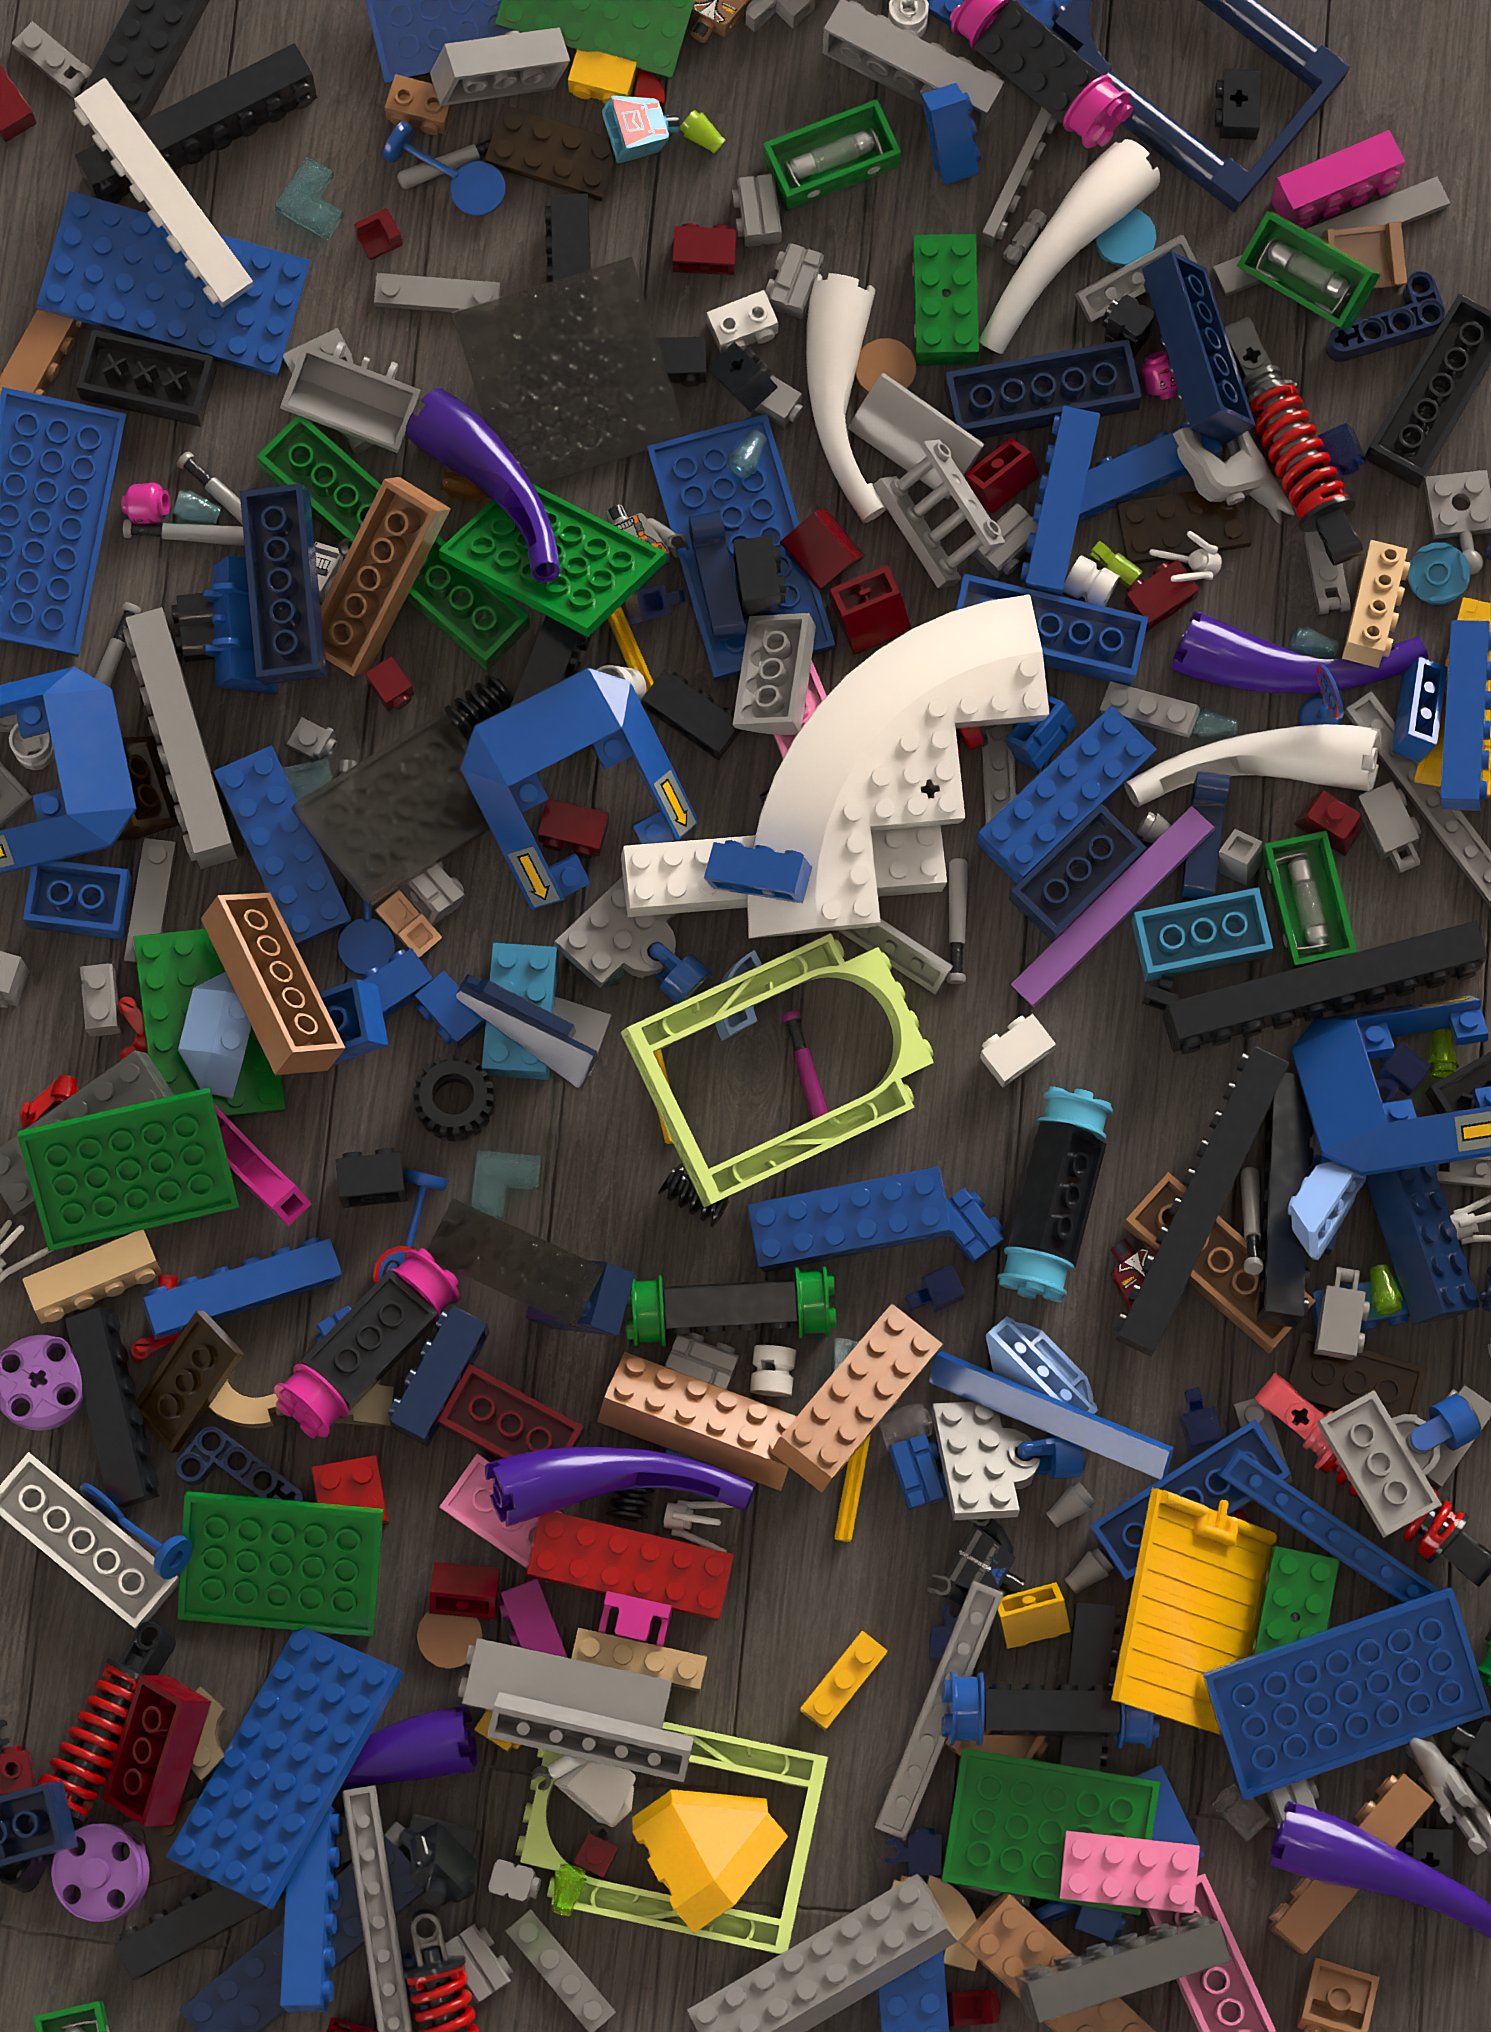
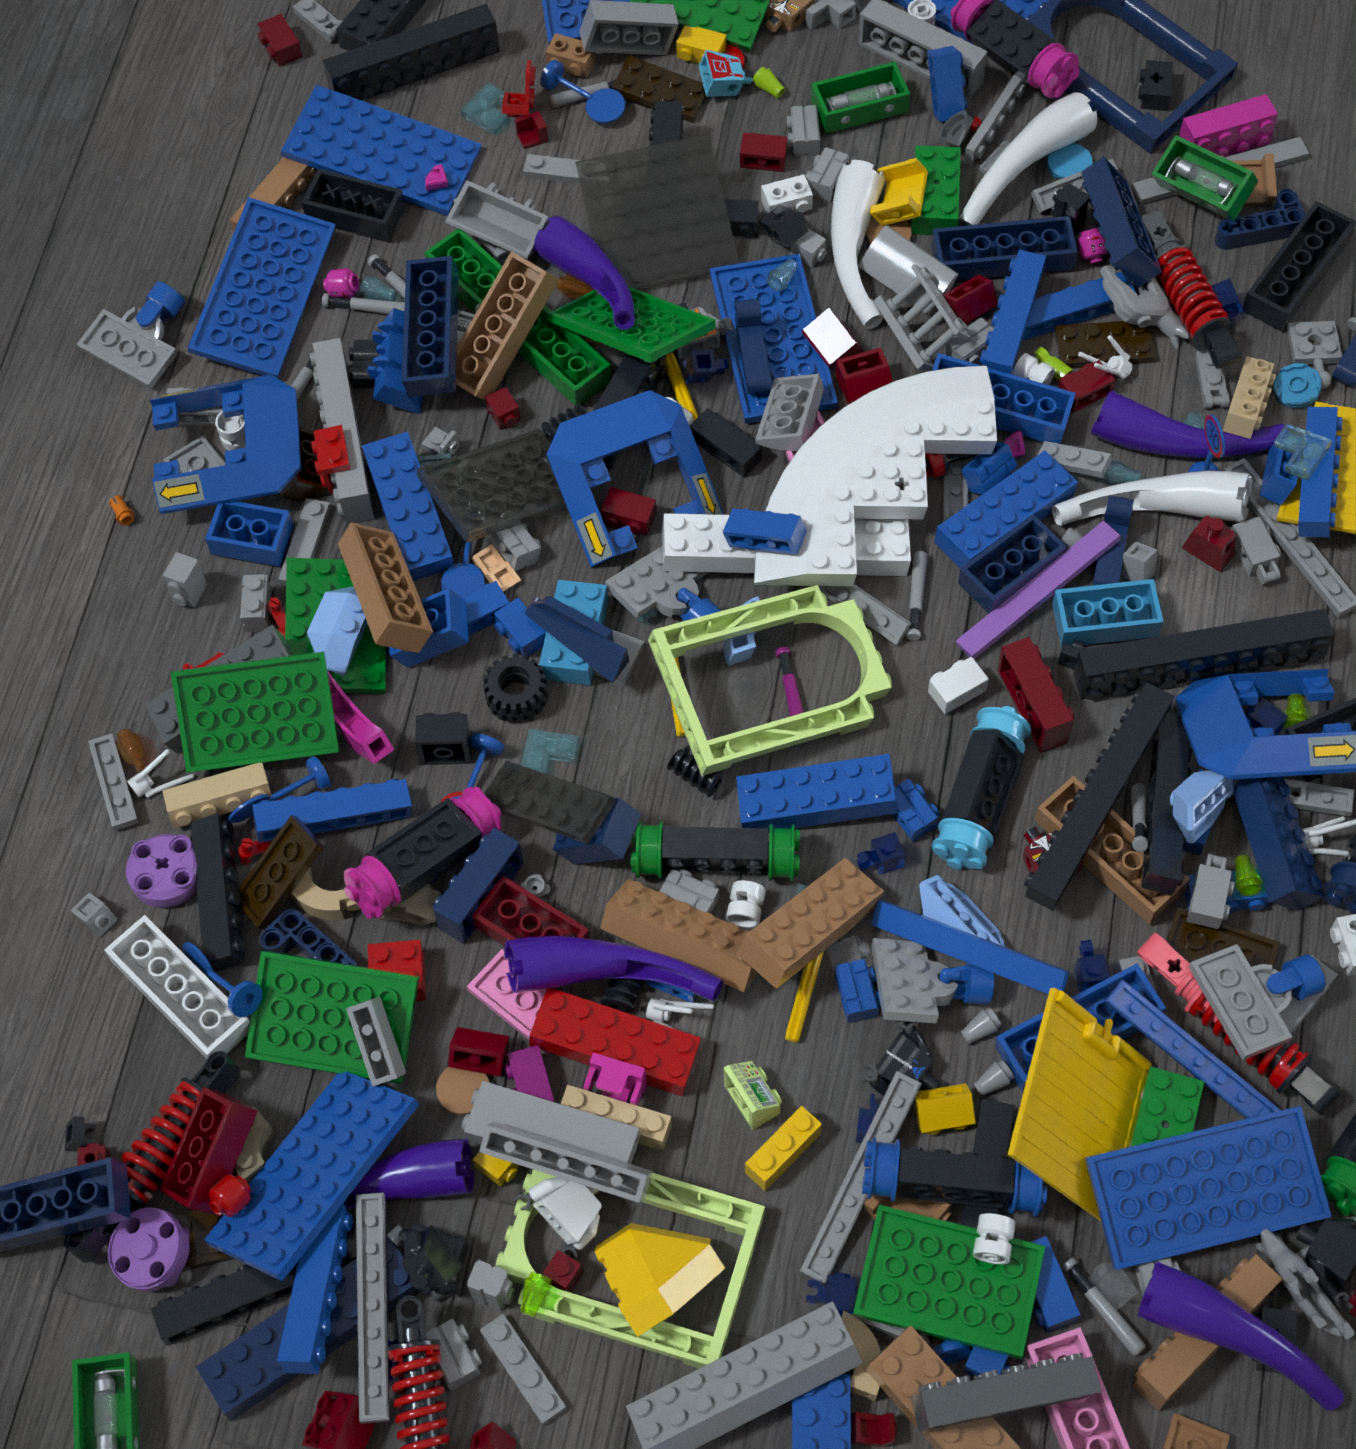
camera: 10 degrees right, 15 degrees down
(163, 193) = (381, 84): white brick -> none
(174, 784) = (331, 454): none -> red bracket
(191, 1805) = (229, 1195): none -> red head
(214, 1237) = (316, 773): none -> blue piece
(256, 328) = (436, 178): none -> dark pink tile
(341, 1597) = (376, 1041): none -> light grey brick
(358, 190) = (519, 103): none -> red bracket
(508, 1357) = (536, 881): none -> light grey plate
(757, 576) = (784, 346): black brick -> none
(801, 1615) = (751, 1093): none -> yellowish green slope
(900, 316) = (903, 192): none -> yellow panel
(968, 196) = (958, 128): none -> dark grey piece
(1071, 691) = (1016, 443): none -> dark pink tile
(1100, 1771) = (994, 1236): none -> white wheel
(1115, 1058) = (1035, 694): none -> dark red brick
(1129, 1872) = (1015, 1318): bright pink plate -> none
(1248, 1858) = (1112, 1317): none -> light grey piece
(1307, 899) = (1190, 588): green piece -> none
(1451, 690) = (1306, 447): none -> clear light blue plate

